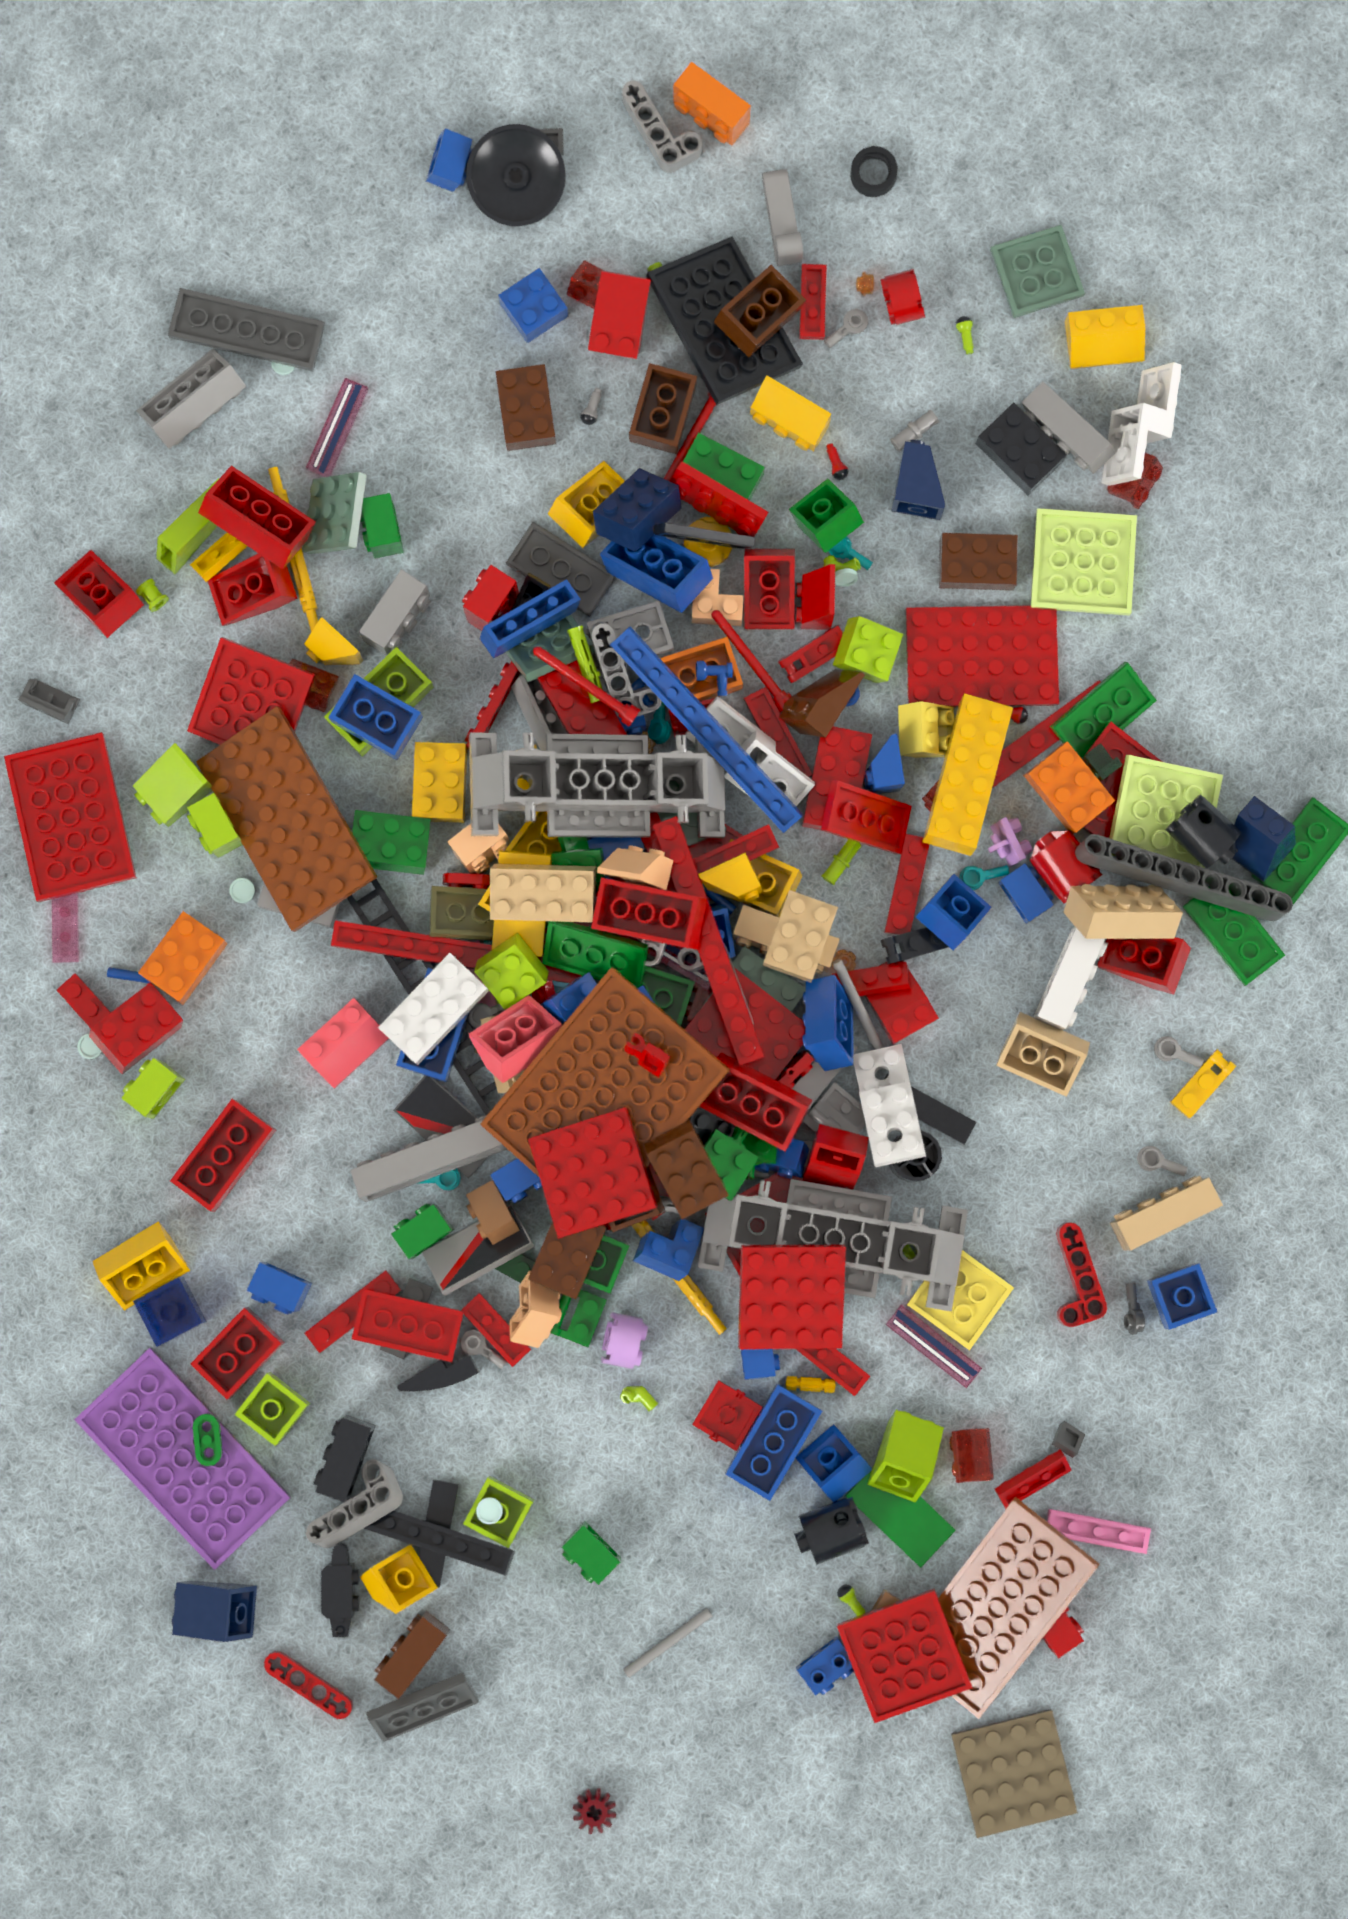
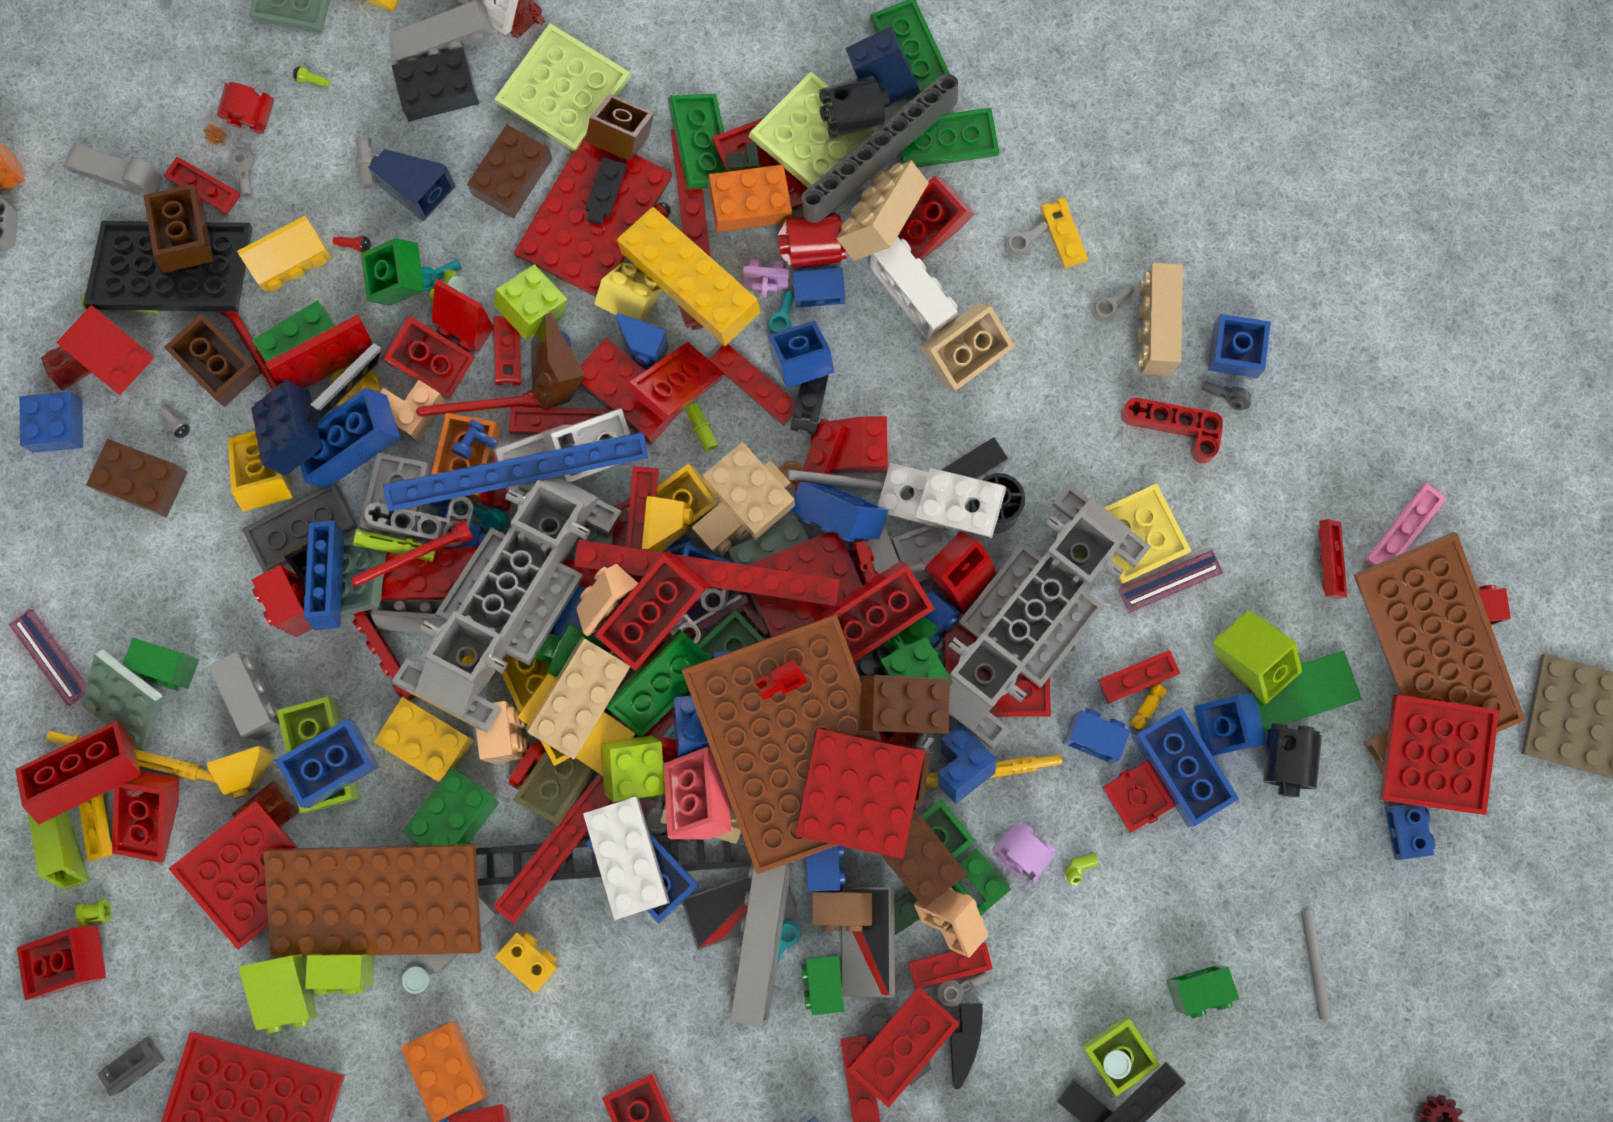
camera: 60 degrees left, 5 degrees down
(307, 974) = (528, 961): none -> yellow brick
(343, 1043) = (610, 962): coral slope -> none
(791, 1296) = (1068, 676): red plate -> none
(847, 1594) = (1353, 778): lime piece -> none
(882, 154) = (113, 61): black tyre -> none
(971, 1455) = (1285, 599): clear red bracket -> none
(1007, 655) = (605, 190): none -> black hinge
(1068, 1439) = (1313, 509): dark grey plate -> none
(1071, 635) = (619, 127): none -> reddish brown brick

